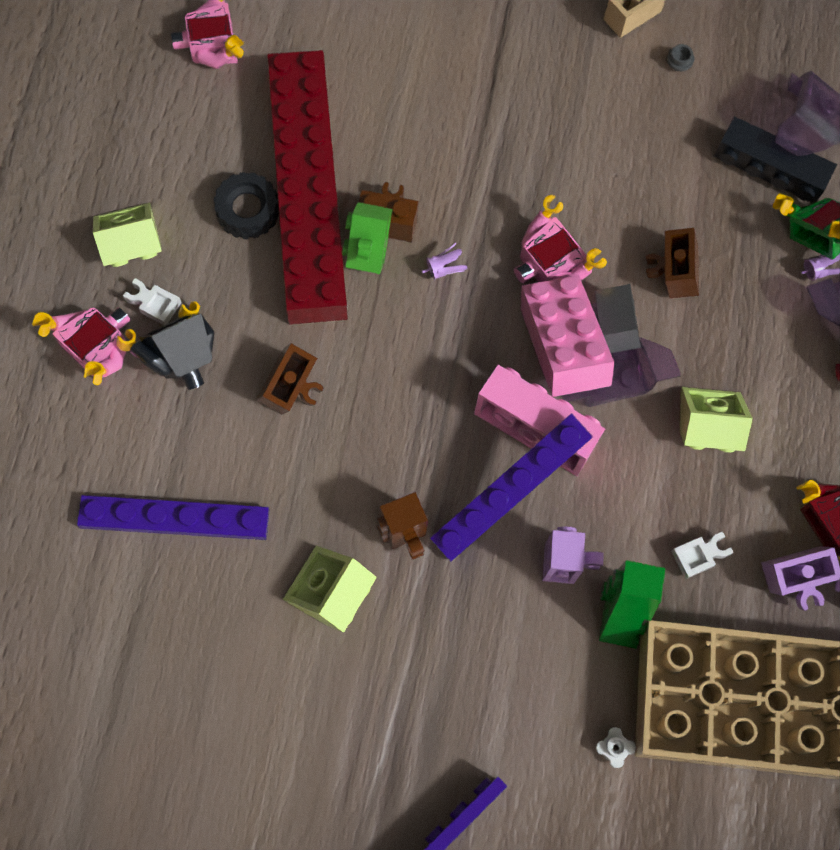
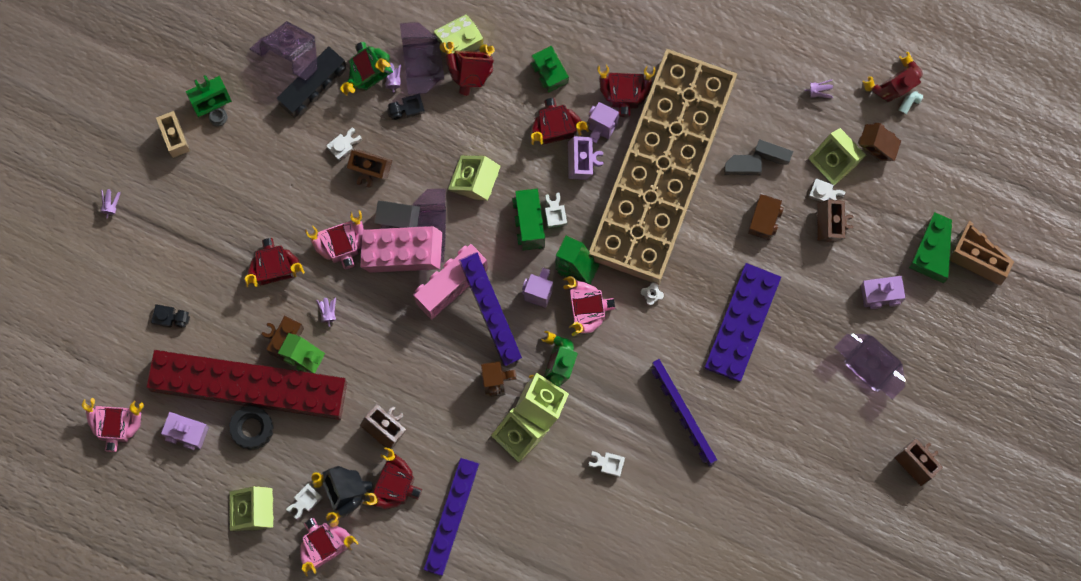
camera: 70 degrees left, 5 degrees up
(202, 417) = (394, 484): none -> torso
(221, 122) = (185, 431): none -> lavender brick
(311, 749) = (610, 464): none -> white plate
(380, 68) = (166, 315): none -> black plate
(381, 606) = (541, 402): none -> yellowish green brick
(454, 622) = (561, 359): none -> green torso
(488, 171) = (272, 265): none -> torso
(561, 643) = (587, 306): none -> torso
(674, 516) = (529, 219): none -> green wedge
(695, 218) = (342, 146): none -> white plate
(706, 34) = (208, 95): none -> green brick
(789, 302) = (411, 106): none -> black plate

